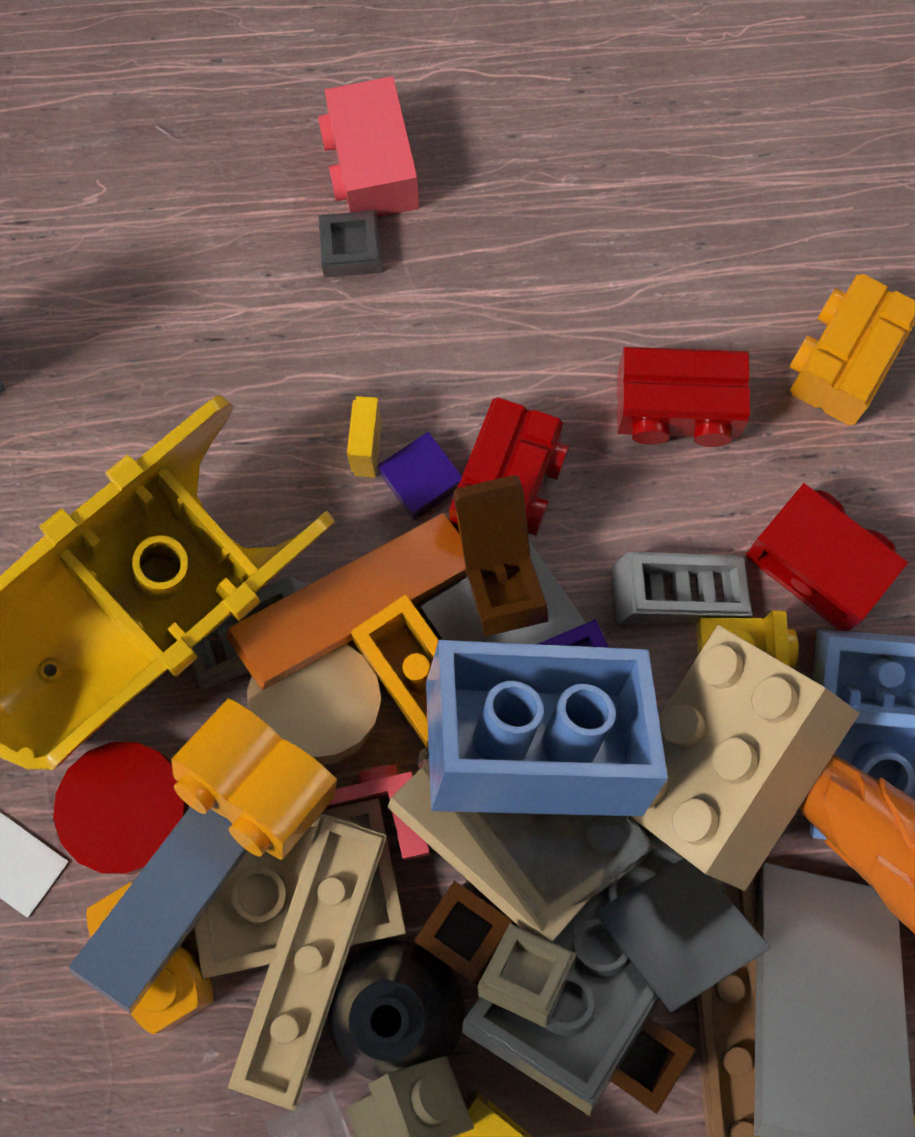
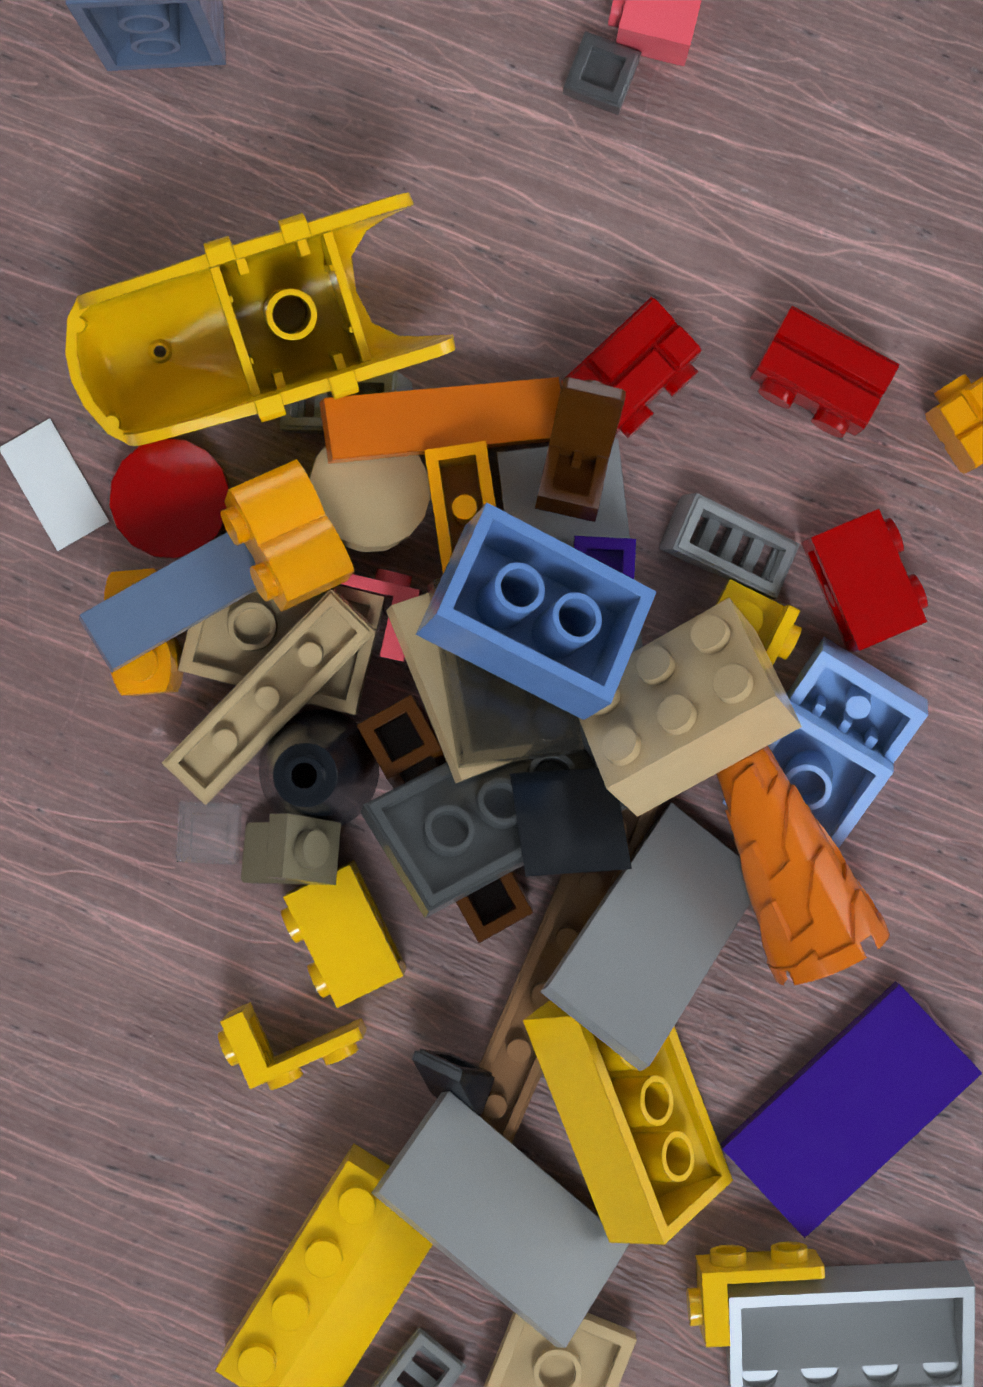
camera: 25 degrees right, 15 degrees up
(364, 436) = (523, 273): yellow tile -> none
(420, 475) = (556, 331): dark purple tile -> none
(527, 975) = (430, 794): dark tan tile -> none

